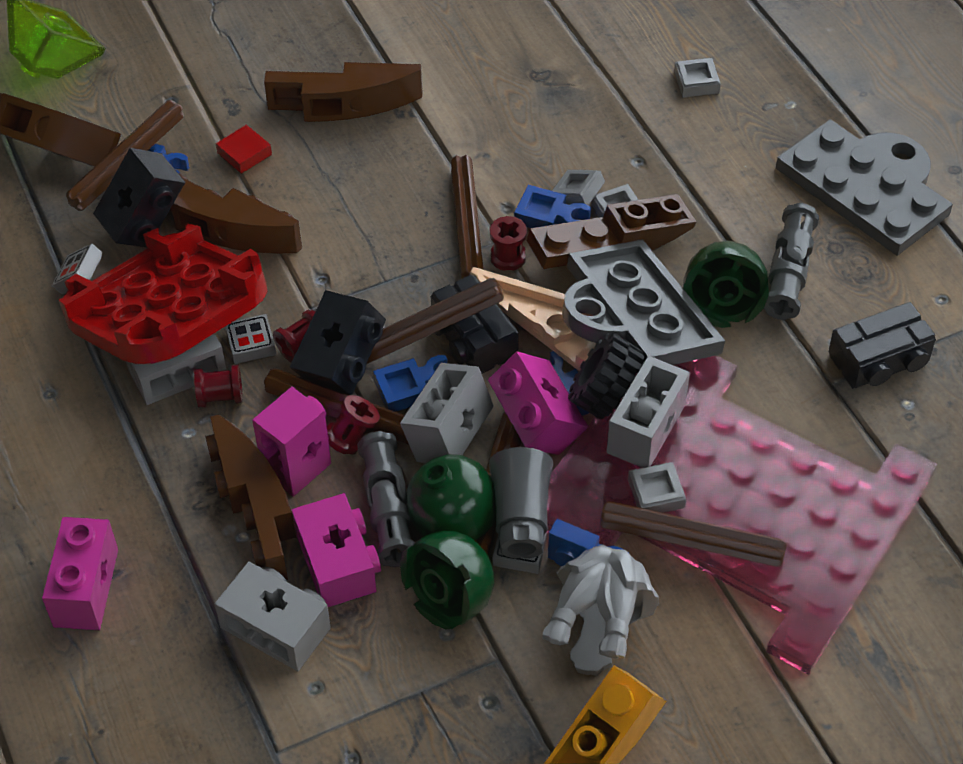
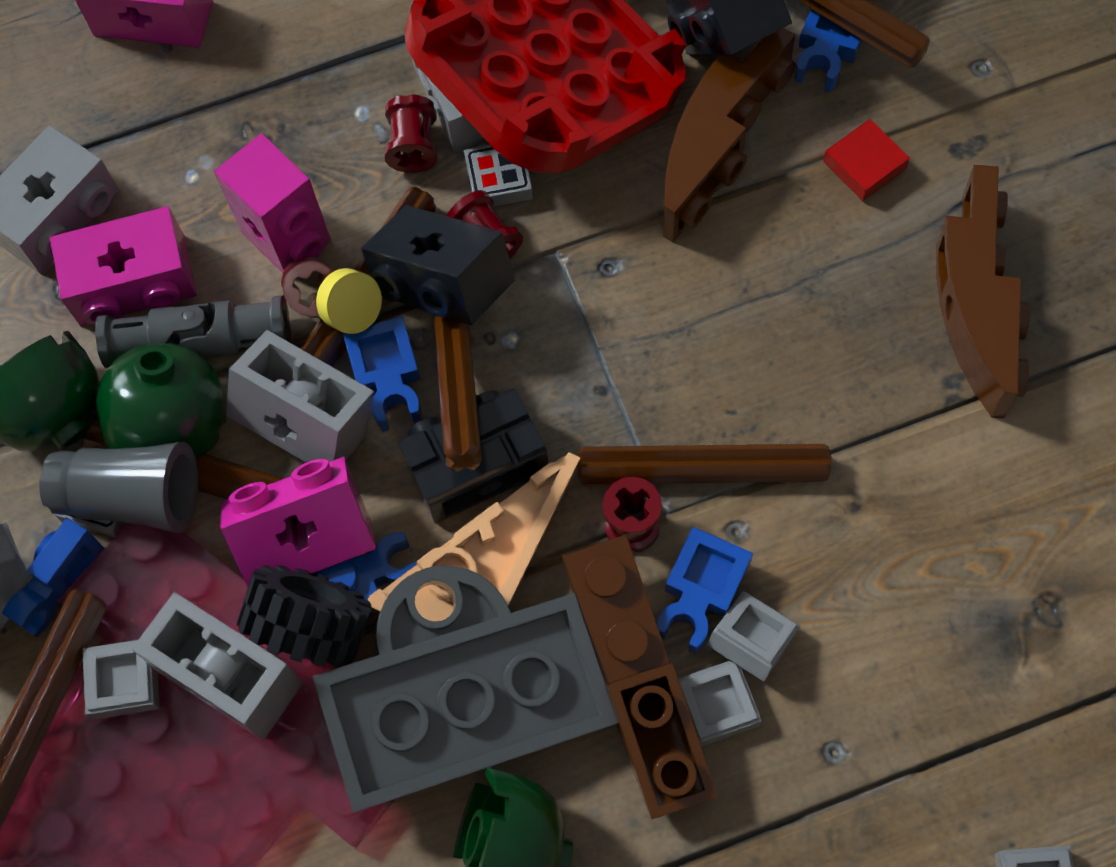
camera: 100 degrees right, 15 degrees up
(252, 490) = (191, 185): reddish brown slope -> none
(369, 390) = (349, 300): none -> light yellow tile

